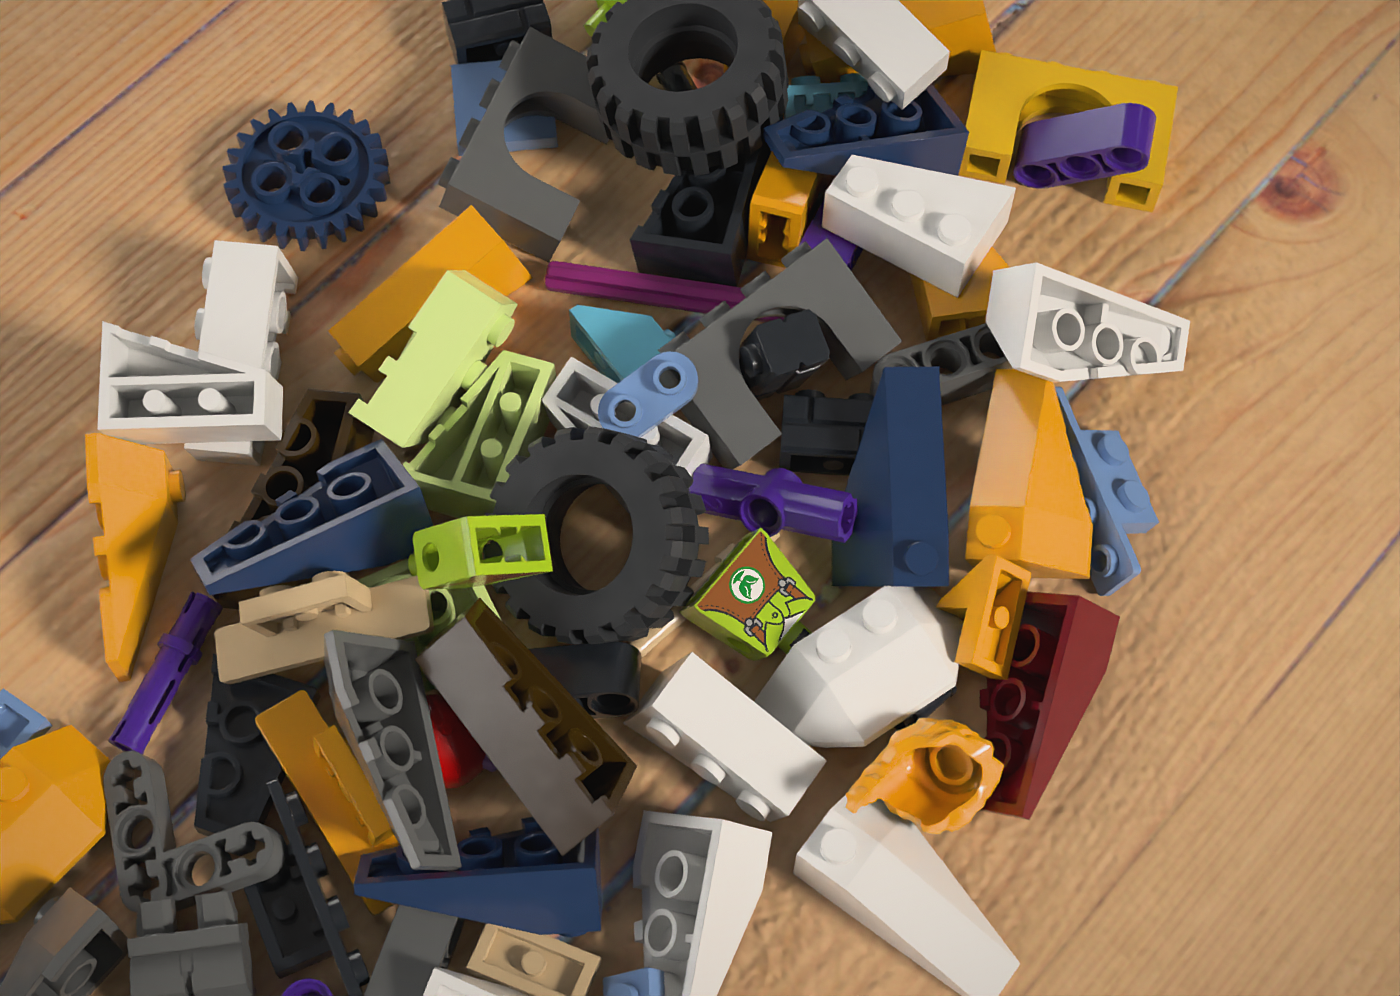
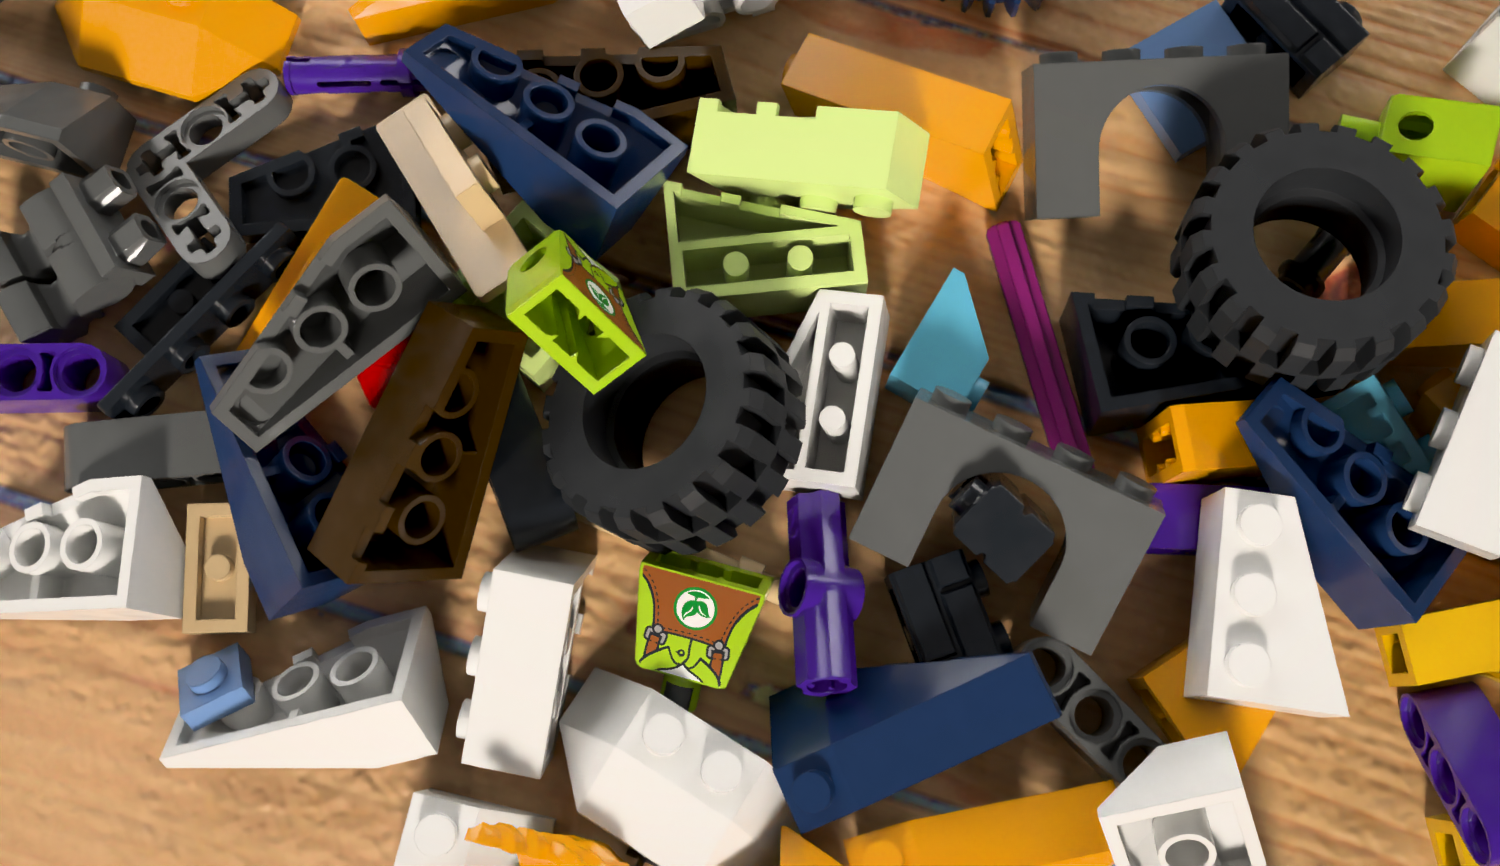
camera: 70 degrees right, 15 degrees up
(648, 396) = (859, 401): medium blue plate -> none

